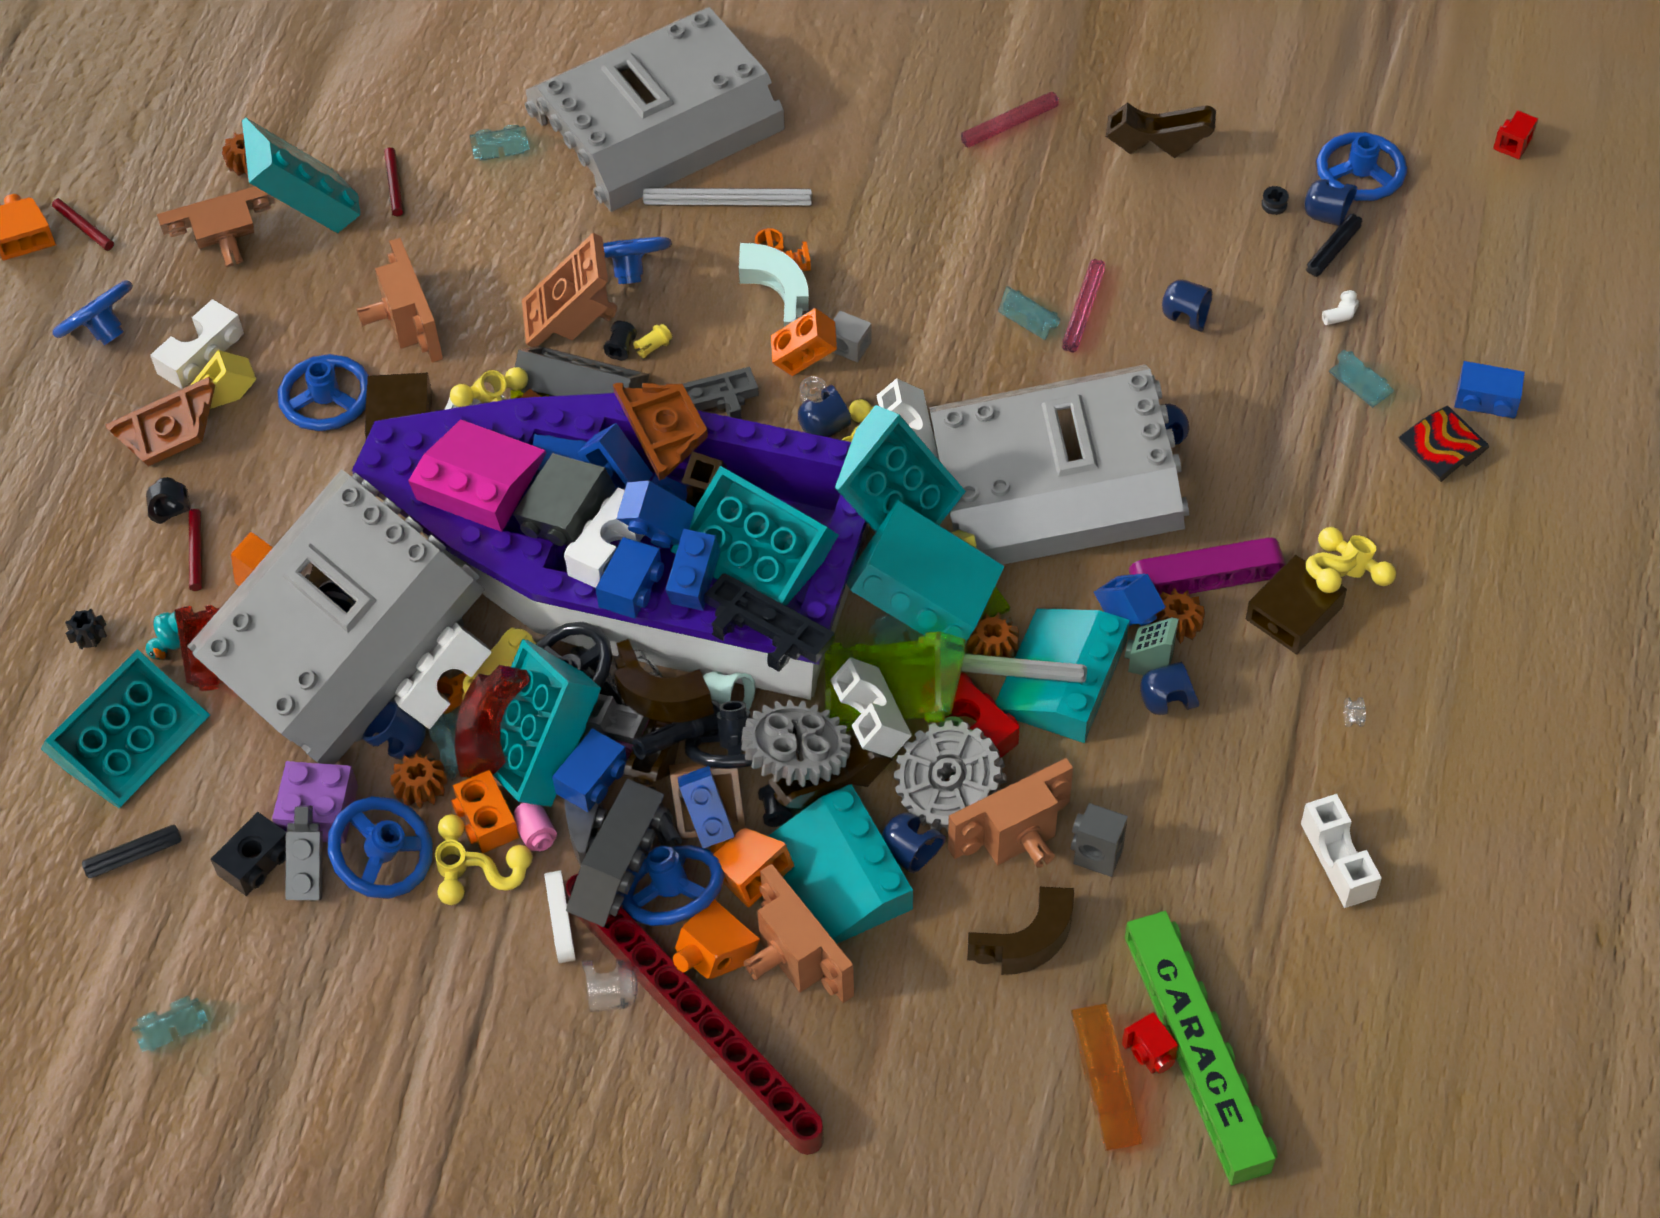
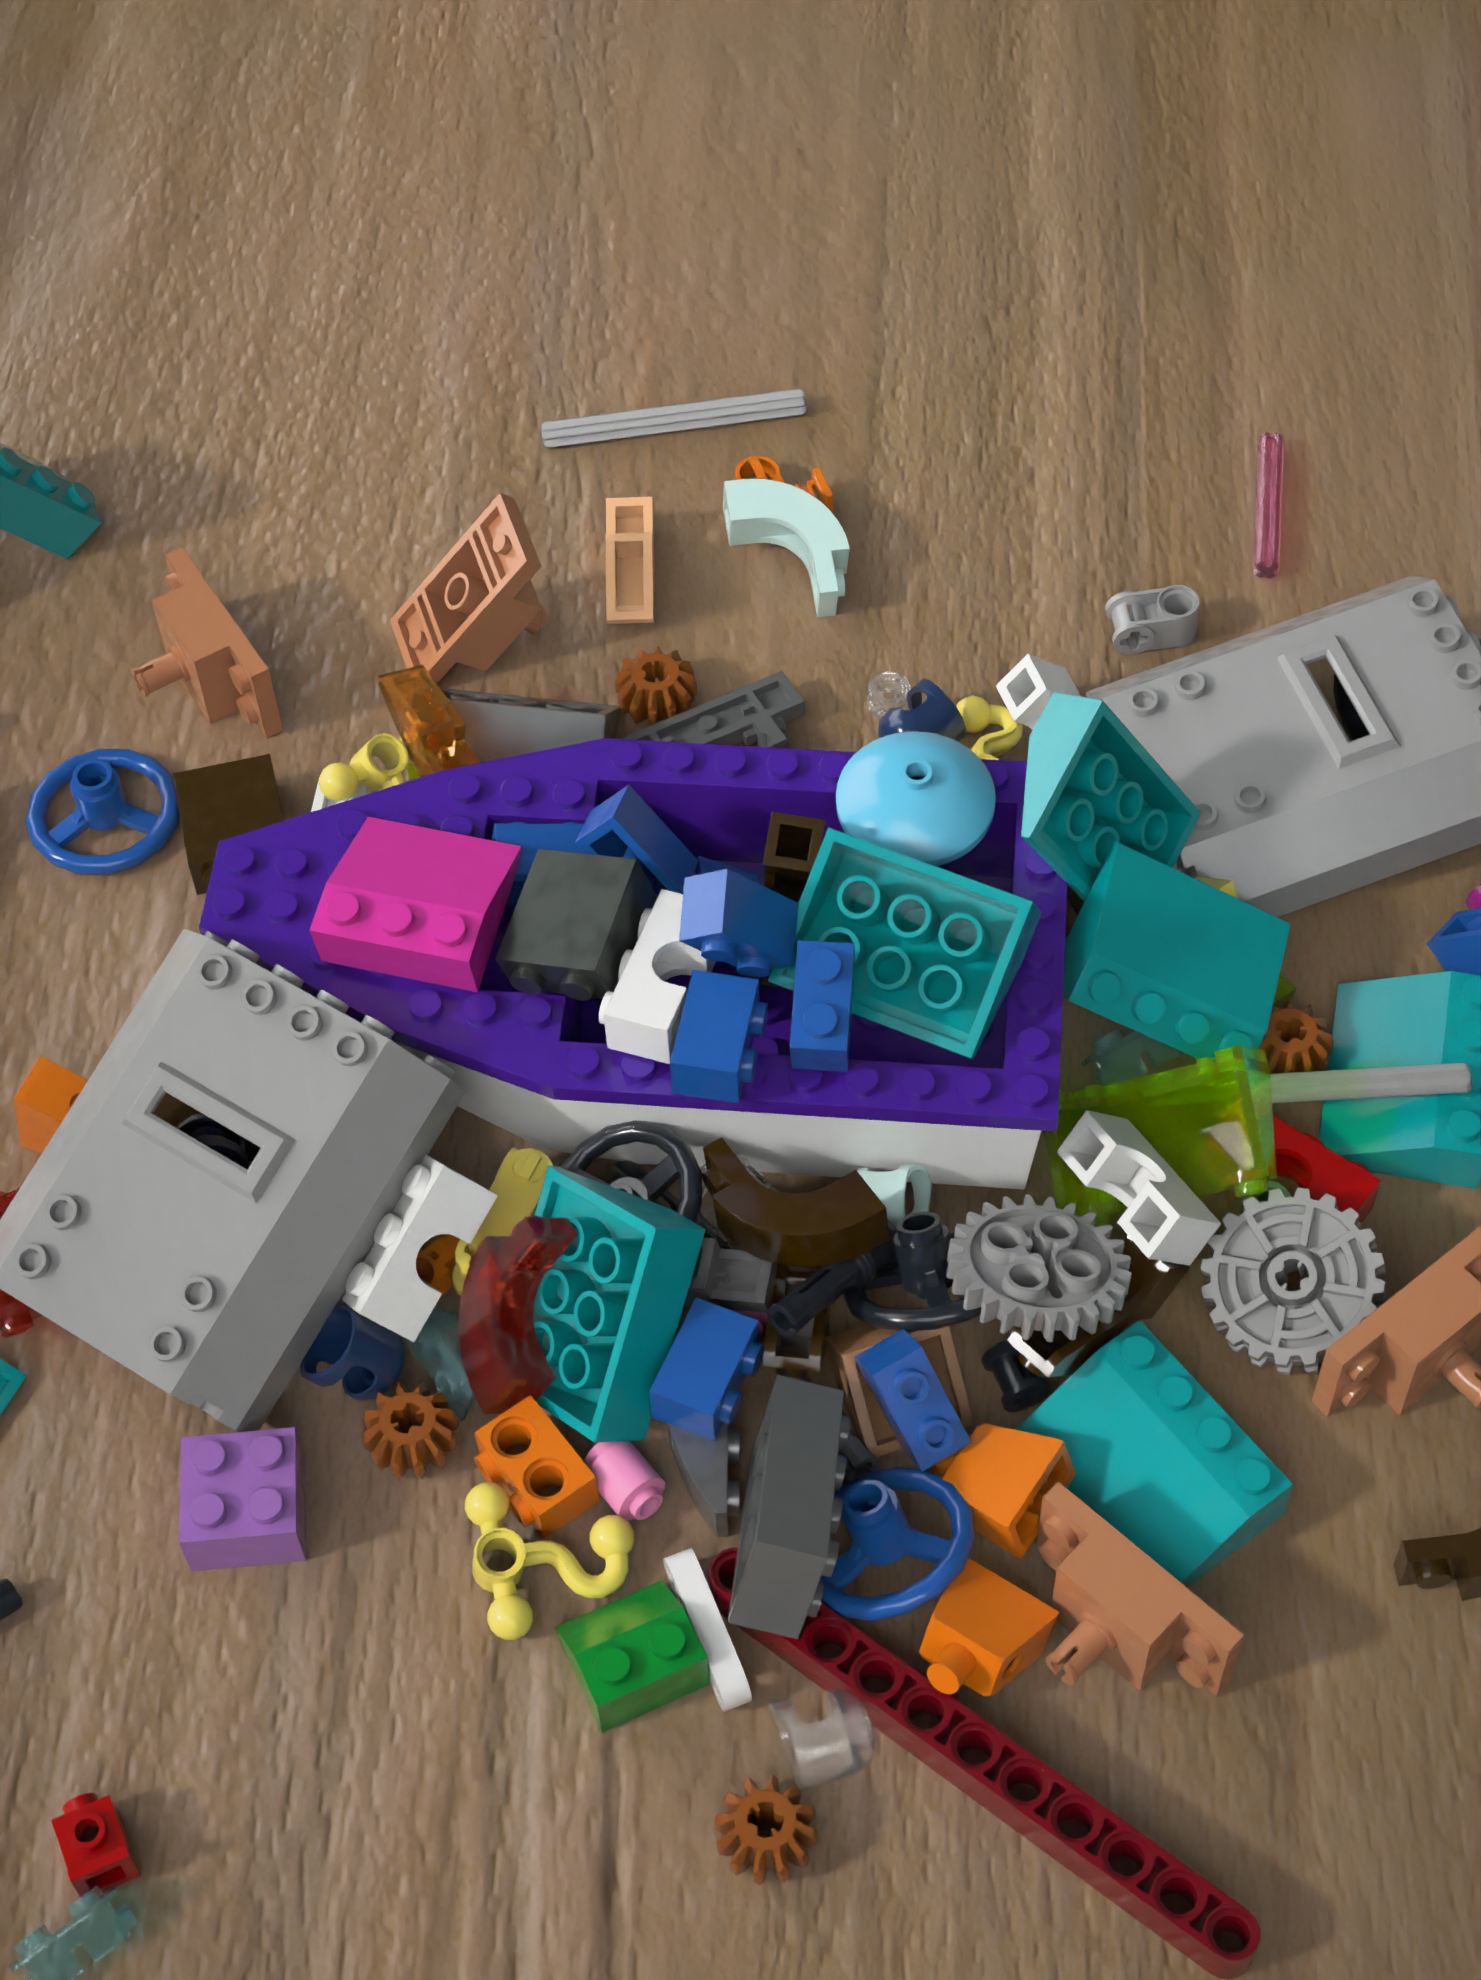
camera: 10 degrees left, 0 degrees up
(193, 974) = (107, 1858): none -> red brick
(233, 859) = (154, 1577): black brick -> none
(304, 856) = (247, 1601): hinge -> none
(381, 846) = (375, 1559): blue piece -> none
(393, 181) = (140, 467): dark red bar -> none
(511, 138) = (276, 387): clear light blue hinge -> none
(515, 925) = (634, 1655): none -> green slope
(521, 365) = (426, 721): none -> clear orange slope
(569, 1040) = (744, 1821): none -> dark orange gear
(620, 340) = (562, 668): black bush -> none
(628, 256) = (550, 523): blue piece -> none
(657, 337) = (623, 644): light yellow pin -> none
(663, 423) = (702, 773): dark orange wing -> none
(671, 364) = (655, 686): none -> dark orange gear
(676, 284) = (629, 560): none -> light nougat slope
(706, 107) = (614, 292): light grey panel -> none
(788, 469) = (920, 818): none -> medium azure dish
(788, 629) = (1005, 1082): black hinge -> none
(803, 342) = (860, 620): orange brick -> none
(852, 336) = (921, 601): light grey brick -> none
(905, 843) = (1254, 1405): dark blue helmet -> none
(990, 368) = (1156, 619): none -> light grey piece
(1009, 119) = (1073, 247): clear pink axle -> none
(1027, 313) = (1188, 528): clear light blue hinge -> none
(1170, 131) = (1325, 229): dark brown arch -> none
(1189, 299) = (1428, 469): dark blue helmet -> none

